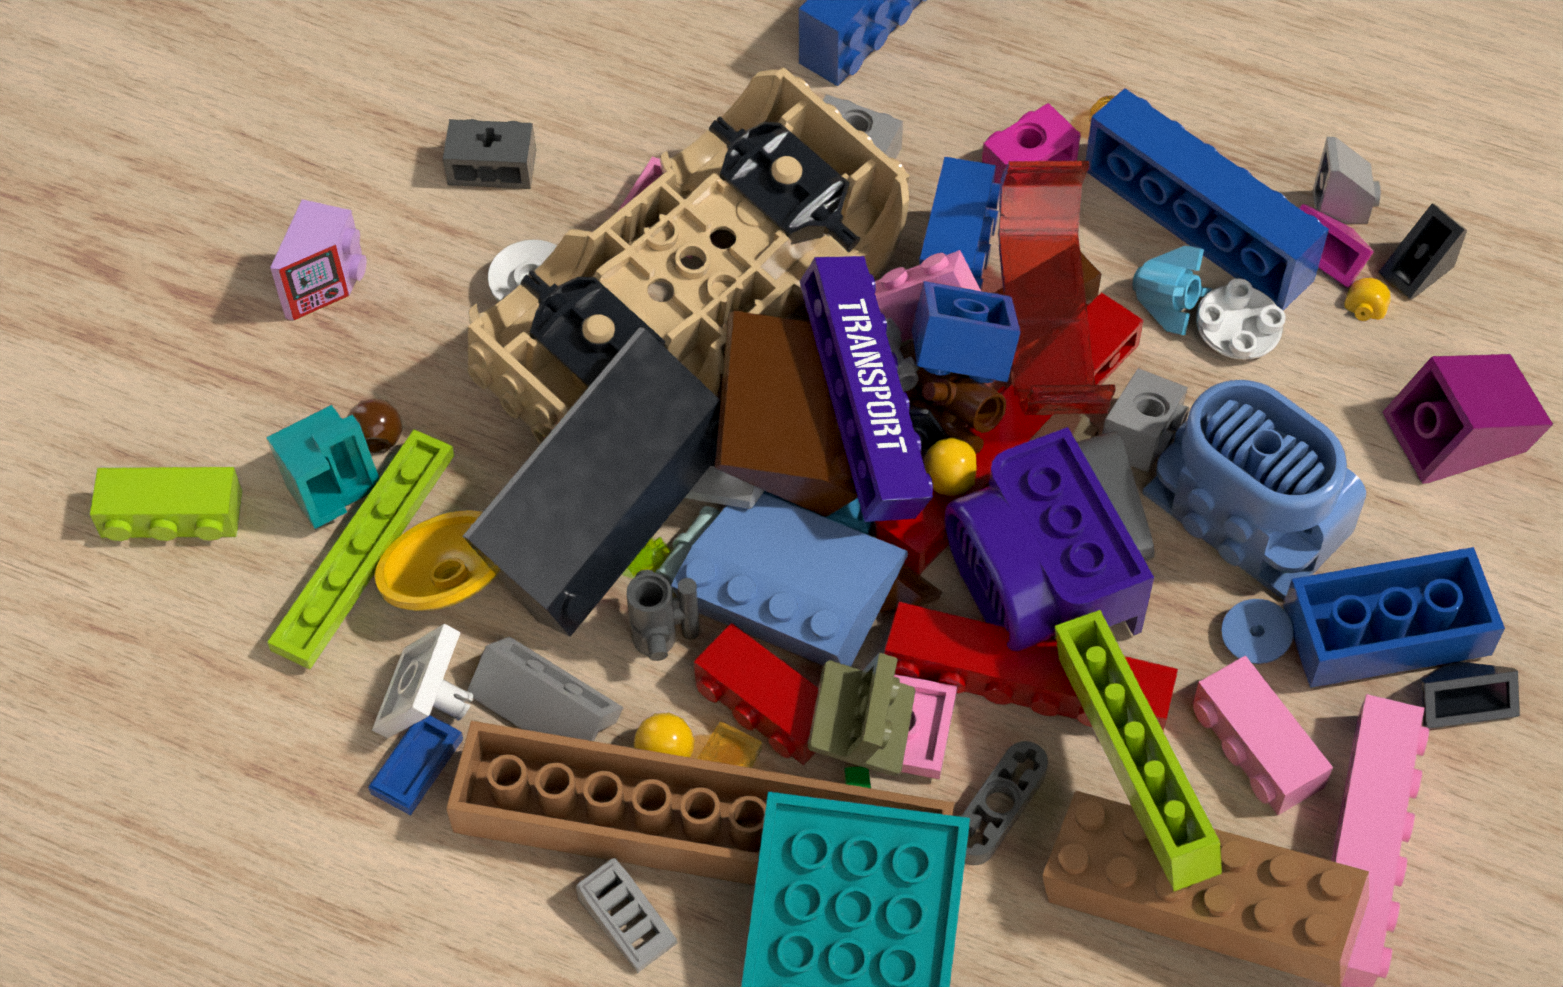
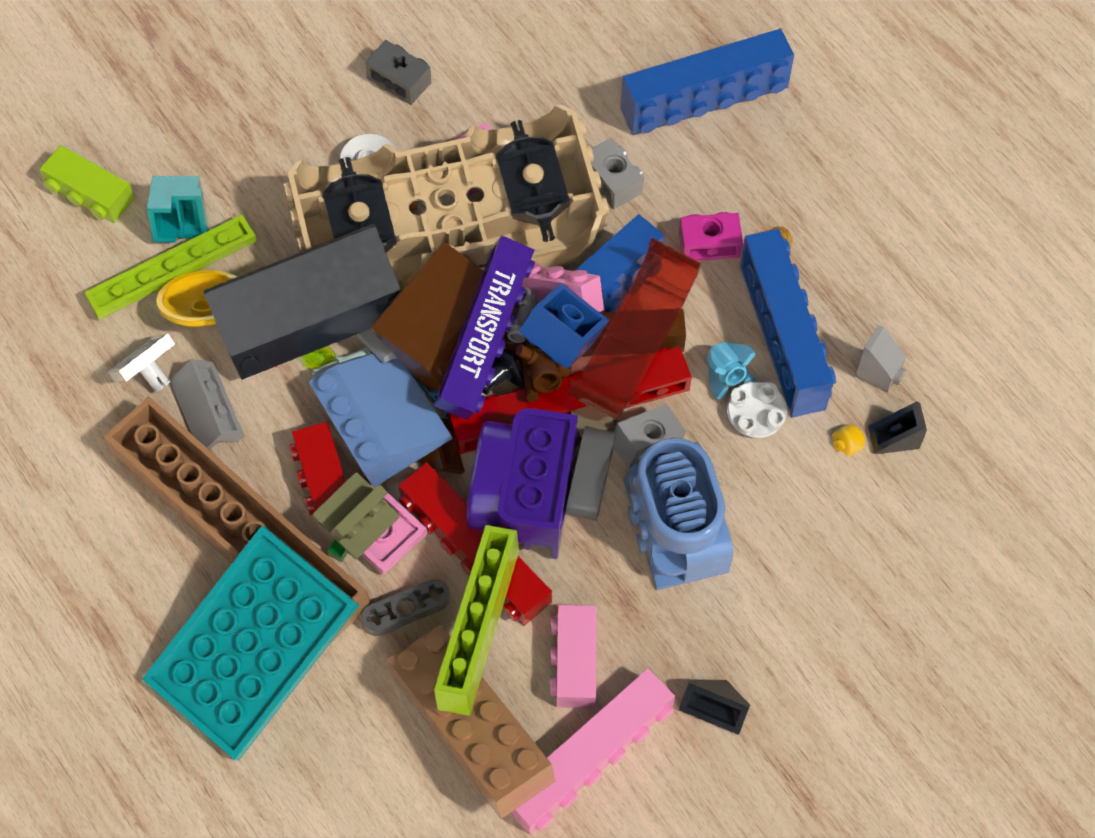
camera: 30 degrees right, 5 degrees up
(317, 259) = (254, 86): lavender slope -> none
(379, 423) = (223, 200): reddish brown piece -> none
(415, 764) = (115, 403): blue tile -> none
(599, 883) = (163, 529): light grey slope -> none
(656, 613) = (292, 394): dark grey pin -> none
(665, 734) = (250, 466): yellow piece -> none
(731, 747) = (280, 493): clear yellow plate -> none
(951, 466) = (506, 400): yellow piece -> none
(1257, 630) = (622, 596): medium blue piece -> none
(1343, 251) = (851, 393): dark pink slope -> none
(1393, 617) = (701, 633): blue brick -> none
(1465, 414) = (846, 541): magenta slope -> none

